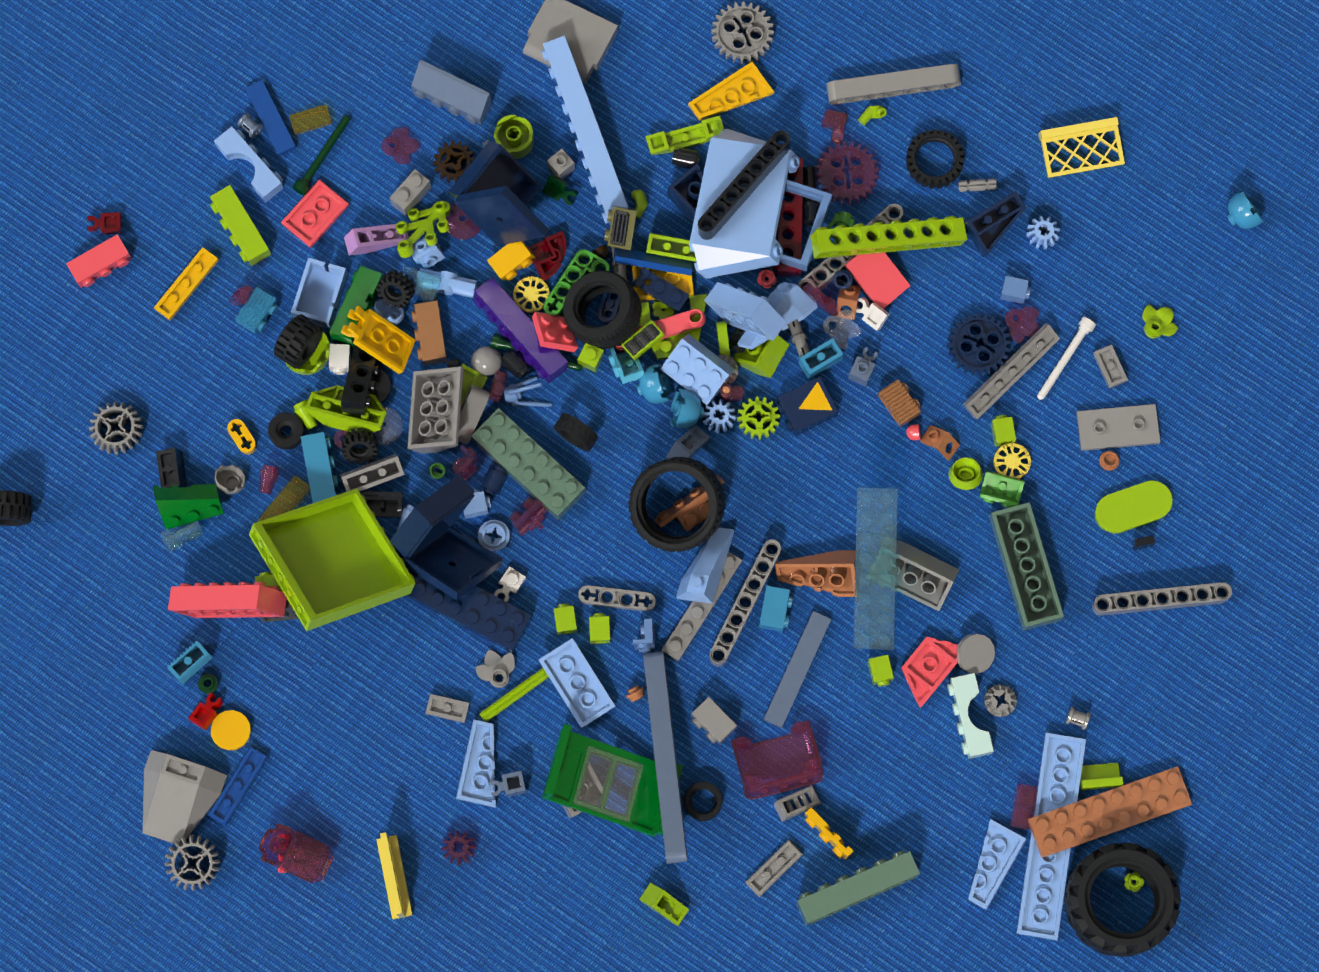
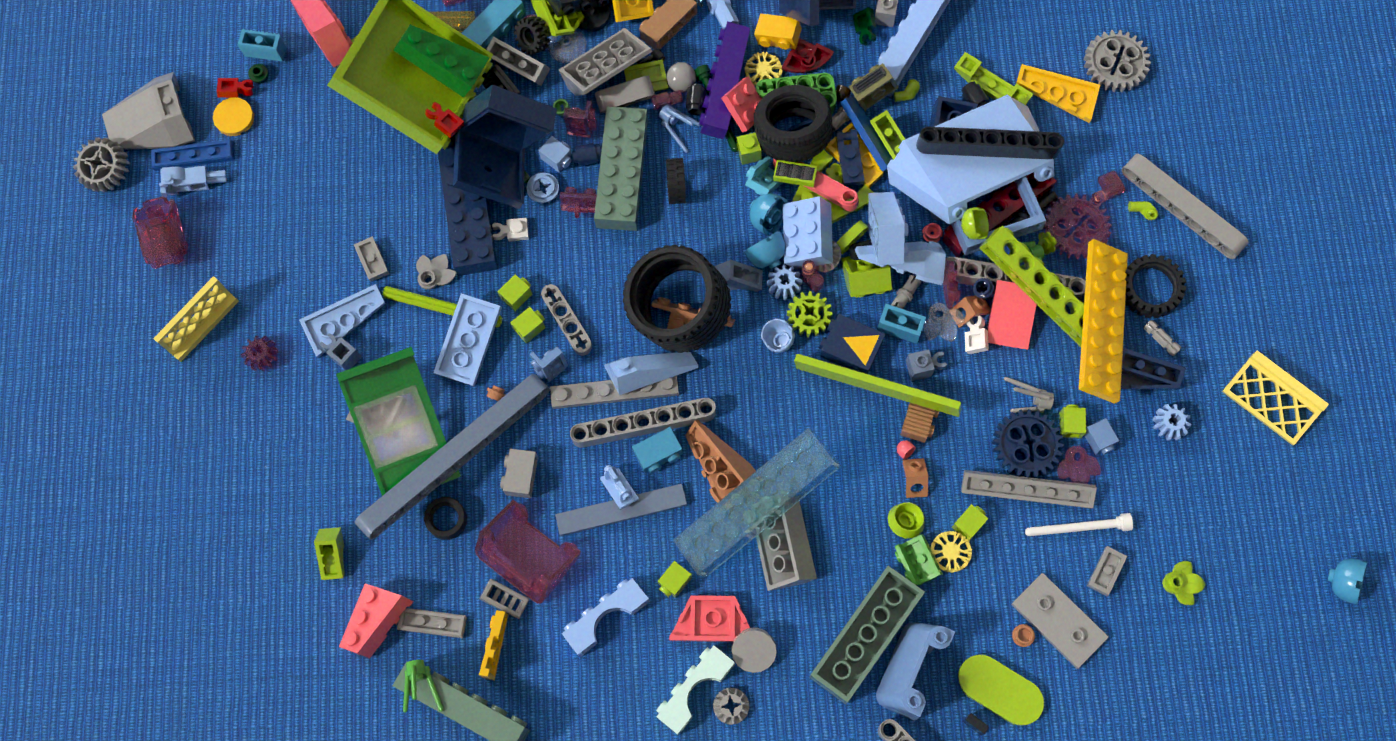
camera: 55 degrees right, 5 degrees down
(262, 801) = (188, 179): none -> light blue piece
(345, 529) = (442, 59): none -> green wedge
(399, 564) = (445, 121): none -> red plate
(740, 907) = (372, 619): none -> coral wedge
(757, 454) = (777, 335): none -> light blue hair
(780, 658) = (618, 487): none -> light blue hinge
(796, 246) = (975, 223): none -> lime hair
(812, 897) = (415, 672): none -> bright green plant
(842, 204) = (1047, 242): none -> lime plant
(854, 413) = (878, 385): none -> lime tile
(869, 765) = (627, 598): none -> light blue arch
(936, 217) = (1103, 322): none -> yellow plate
(954, 307) = (1041, 397): none -> light grey plant
(988, 300) = (1072, 421): none -> lime brick
(1068, 557) = (896, 684): none -> medium blue windscreen

